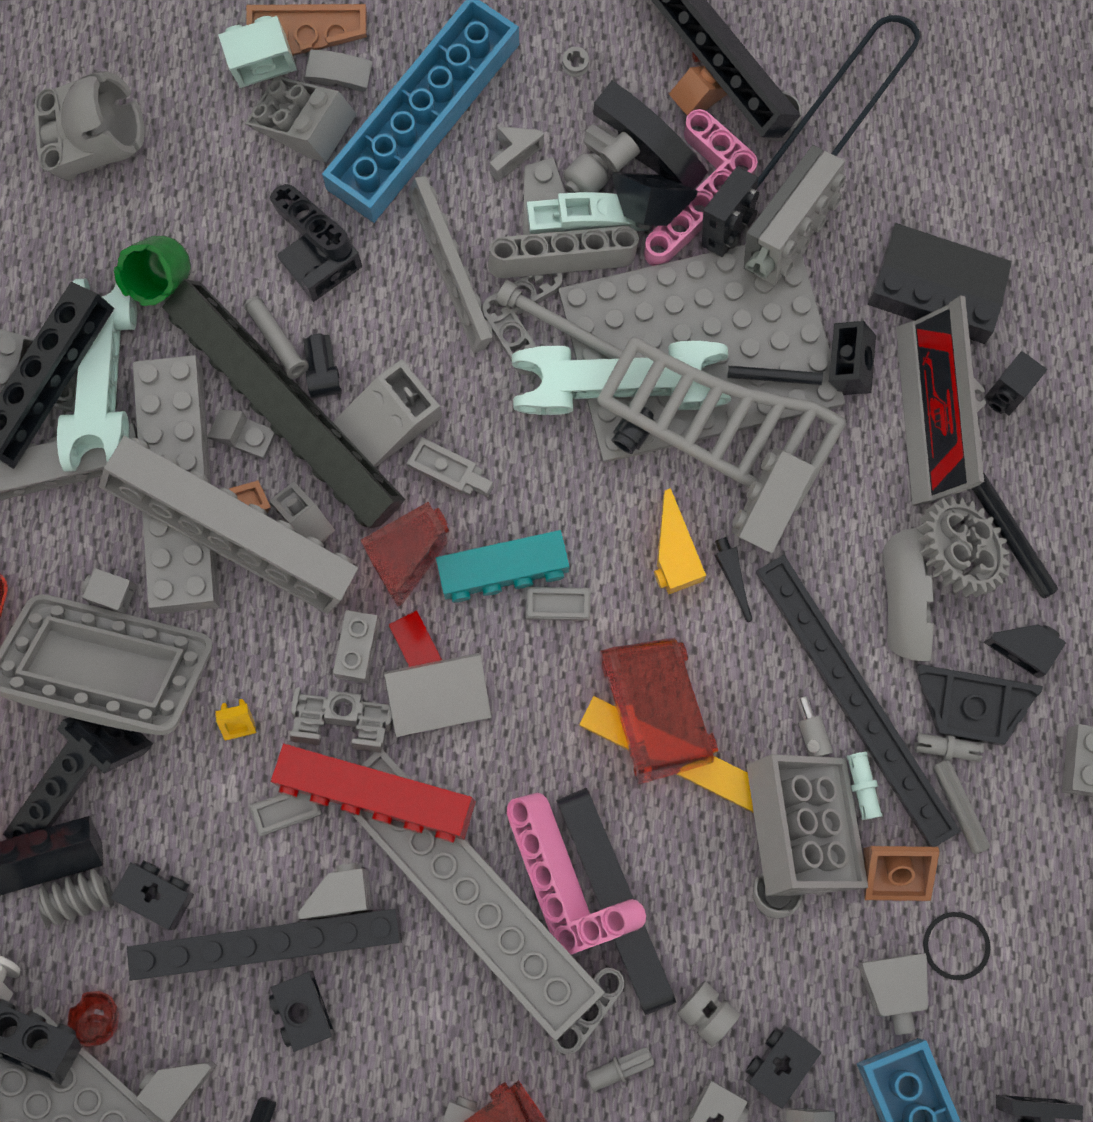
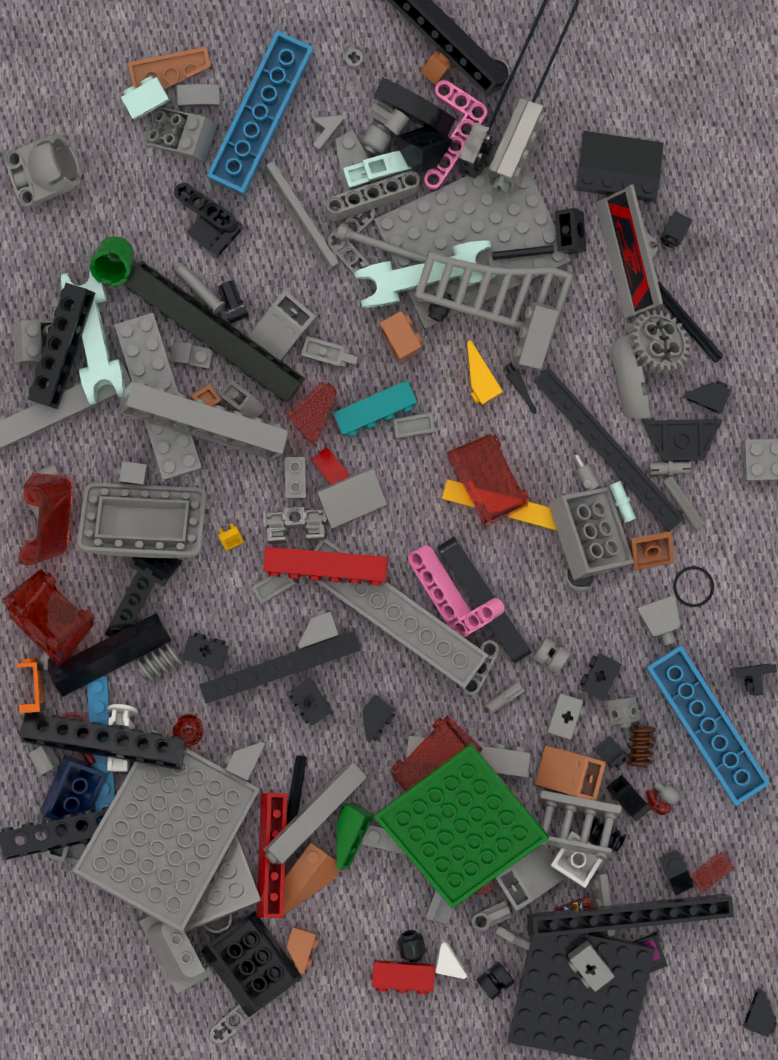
camera: 15 degrees left, 10 degrees up
(399, 1056) = (375, 715): none -> black slope
(563, 460) = (400, 337): none -> nougat brick

